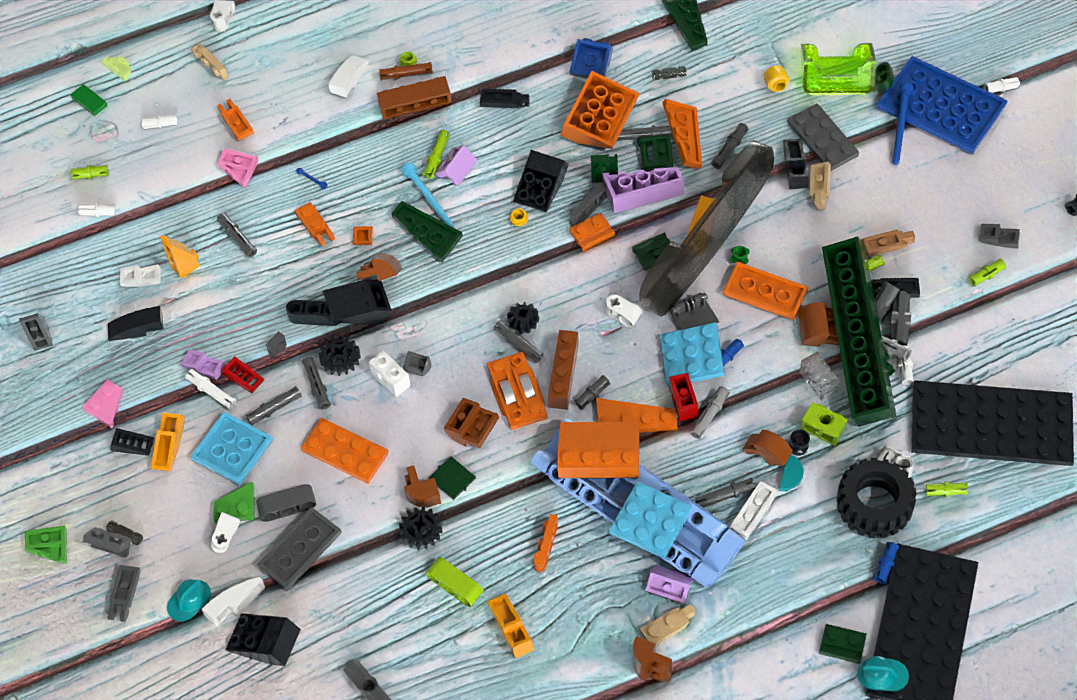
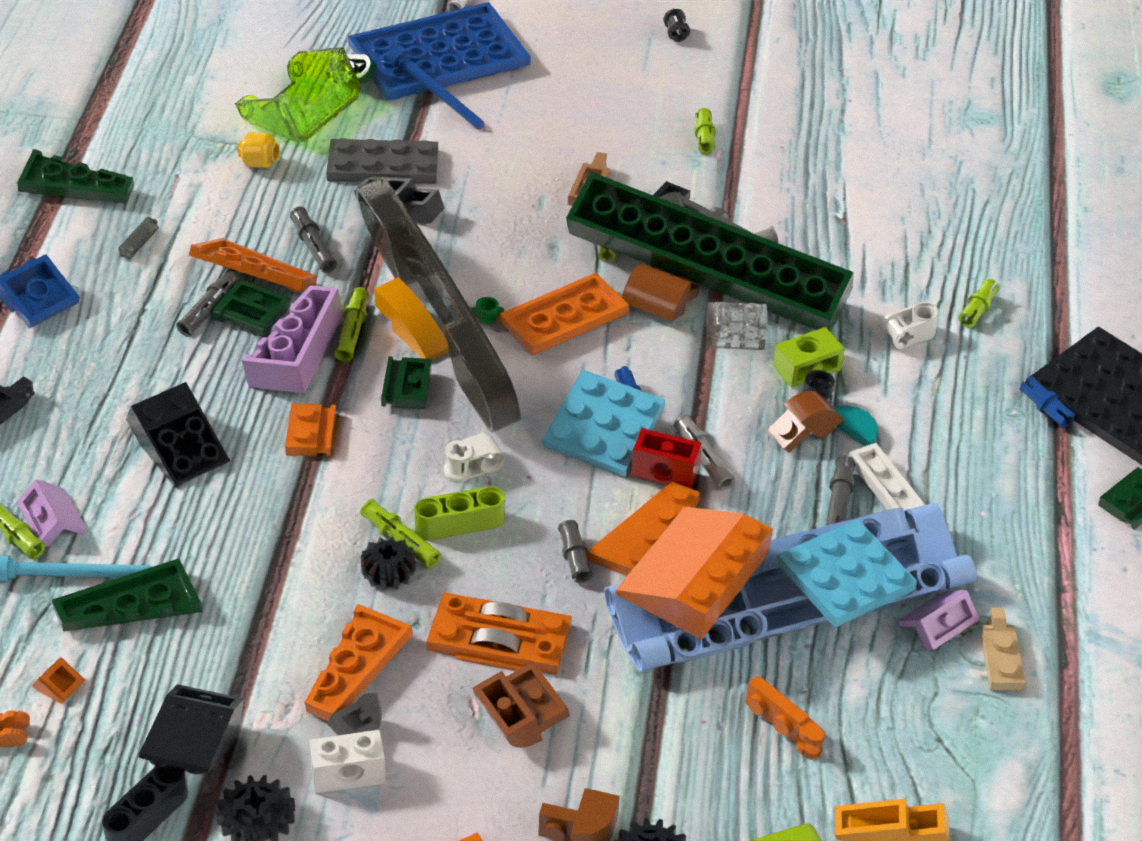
camera: 65 degrees left, 15 degrees down
(382, 265) = (153, 674): dark orange brick -> none
(452, 478) = (581, 772): dark green piece -> none
(461, 342) = (361, 655): none -> orange wing
(511, 335) = (420, 588): dark grey pin -> none
(518, 213) = (212, 489): yellow plate -> none
(550, 304) = (376, 515): none -> lime pin
(563, 369) = (515, 560): dark orange brick -> none
(576, 320) = (459, 513): none -> lime beam
(588, 204) = (266, 407): dark grey hinge -> none
(599, 112) = (132, 323): orange slope -> none
(603, 164) = (229, 355): dark green plate -> none
(648, 662) = (1059, 688): dark orange brick -> none
(659, 210) = (354, 316): none -> lime pin
(693, 312) = (539, 394): dark grey hinge -> none
(820, 184) = (455, 192): tan hinge -> none
(881, 475) = (949, 383): black tyre -> none
(992, 423) = (913, 227): black plate -> none
(998, 236) = (664, 99): dark grey slope -> none

